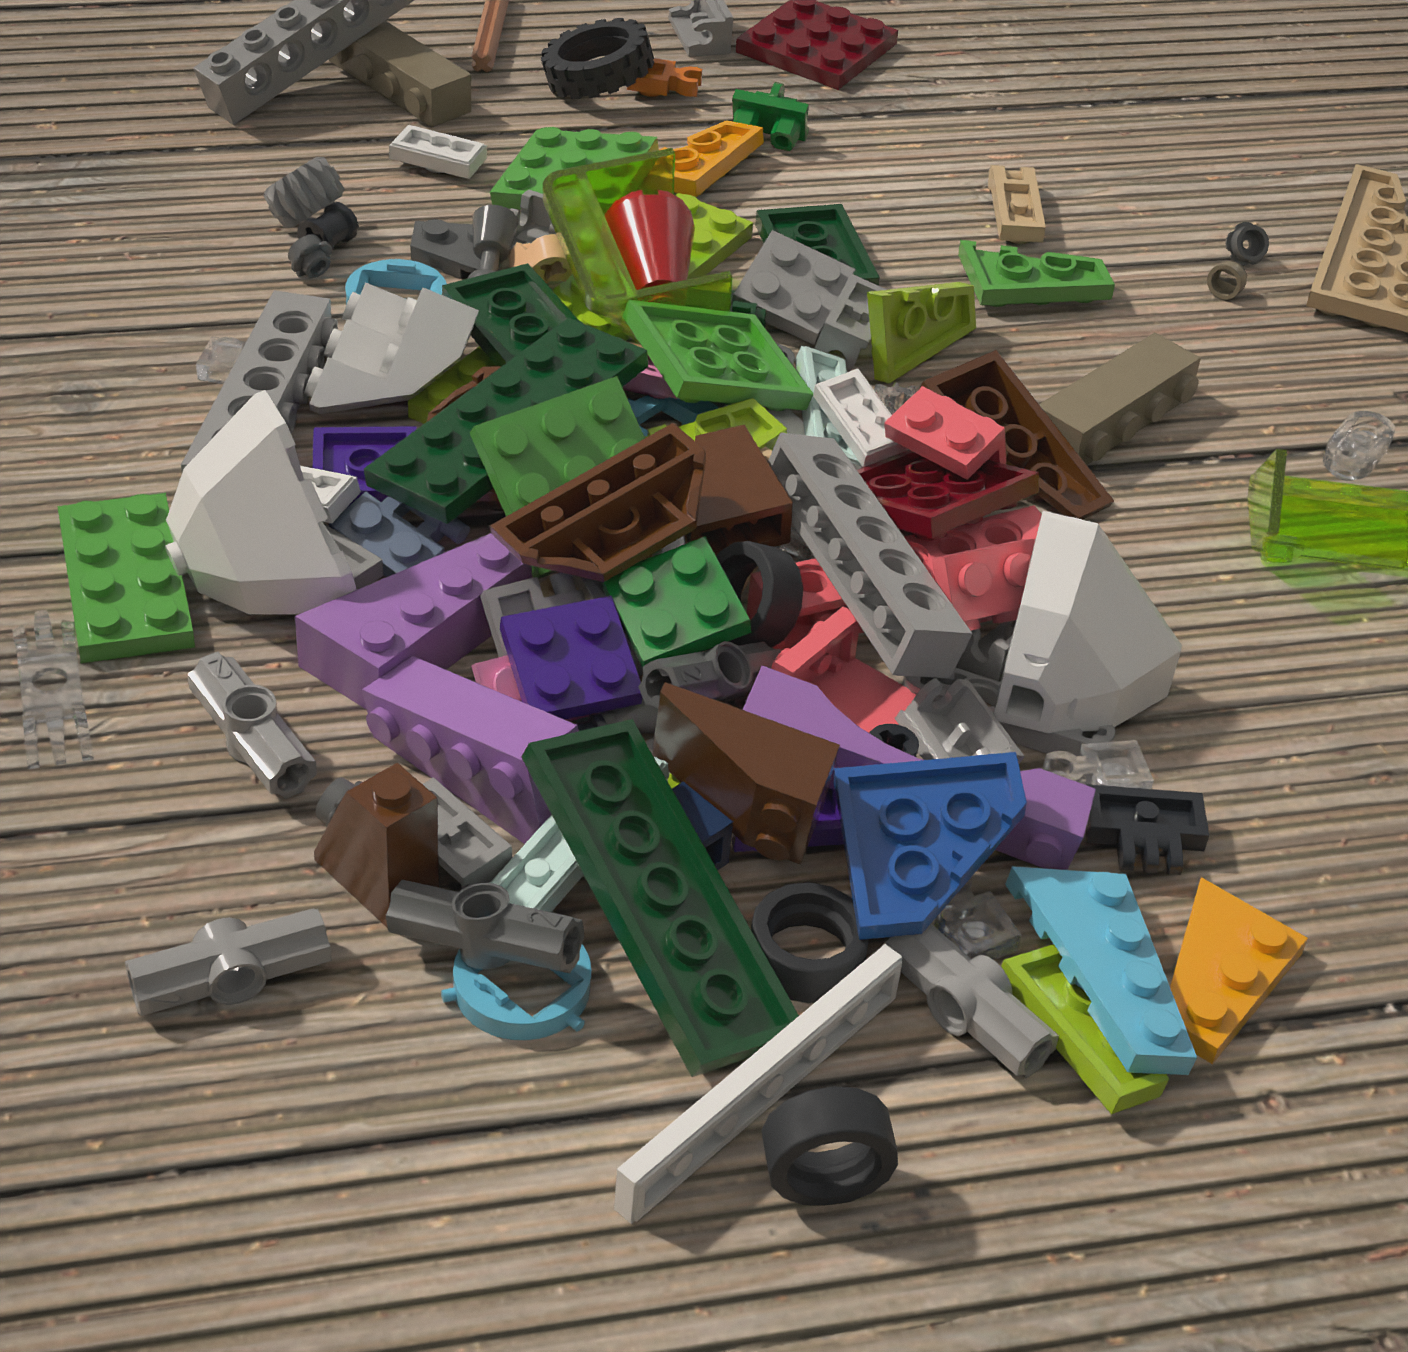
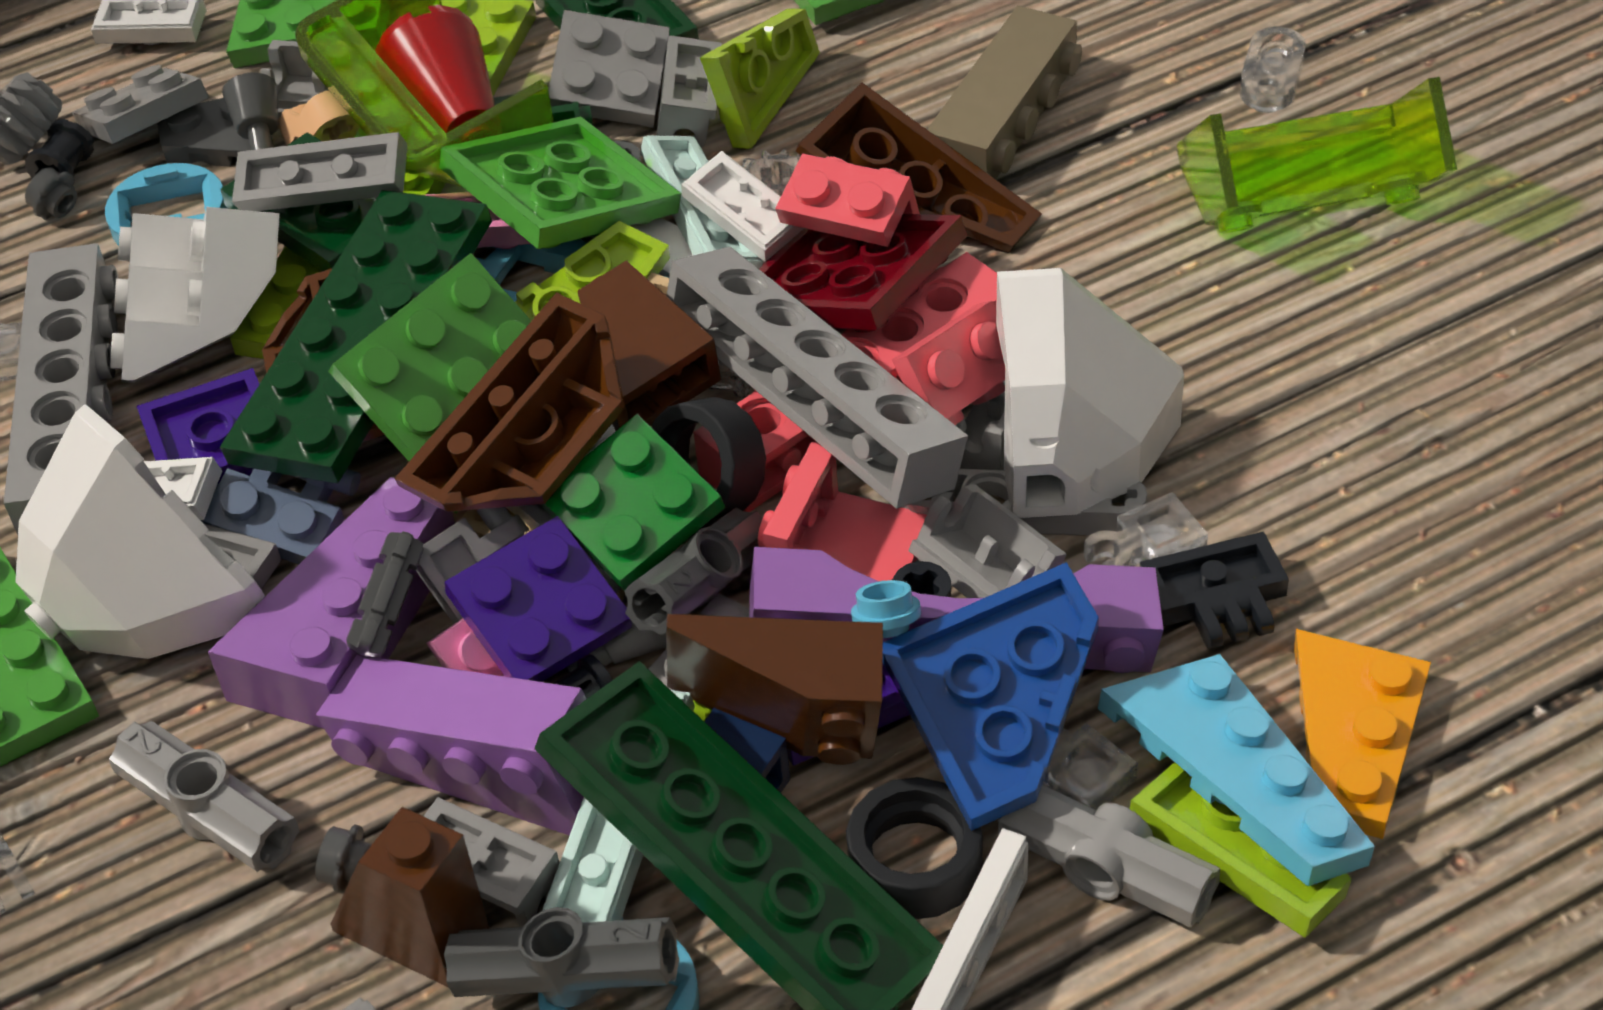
camera: 10 degrees left, 5 degrees up
(417, 207) = (148, 100): none -> light grey plate
(450, 614) = (385, 594): none -> dark grey axle
(525, 290) = (319, 172): none -> light grey plate
(856, 741) = (889, 604): none -> medium azure plate

